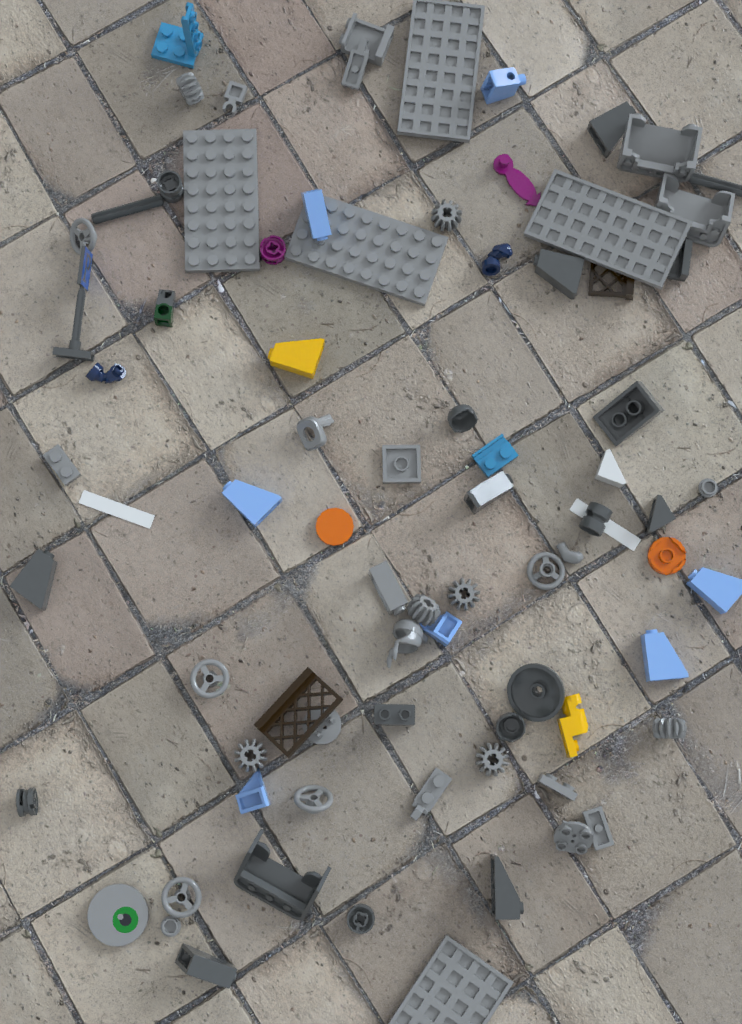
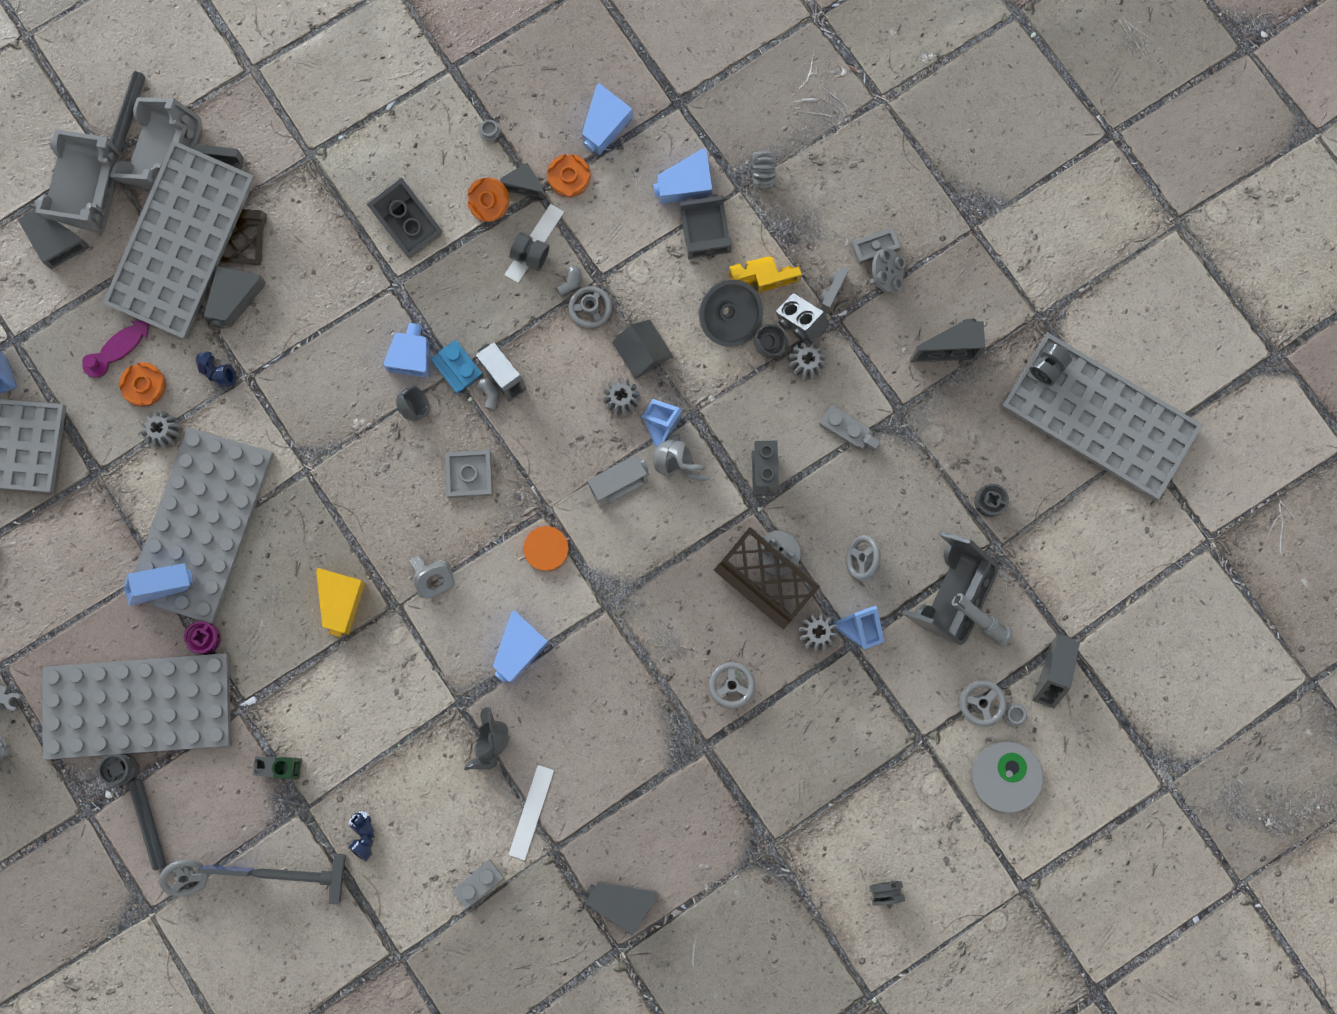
camera: 85 degrees left, 0 degrees up
(174, 477) = (491, 743): none -> dark grey hair
(249, 907) = (989, 624): none -> light grey pin
(423, 609) = (642, 440): light grey gear -> none
(473, 482) = (492, 392): none -> light grey arm
(486, 201) = (142, 384): none -> orange tile
(487, 985) = (1049, 365): none -> dark grey wheel
(507, 416) = (409, 353): none -> light blue torso
(507, 614) = (642, 348): none -> dark grey slope
(531, 757) = (802, 318): none -> dark grey brick
(609, 471) = (472, 237): white slope -> none
(617, 674) = (705, 226): none -> dark grey panel
(643, 485) = (488, 199): none -> orange tile

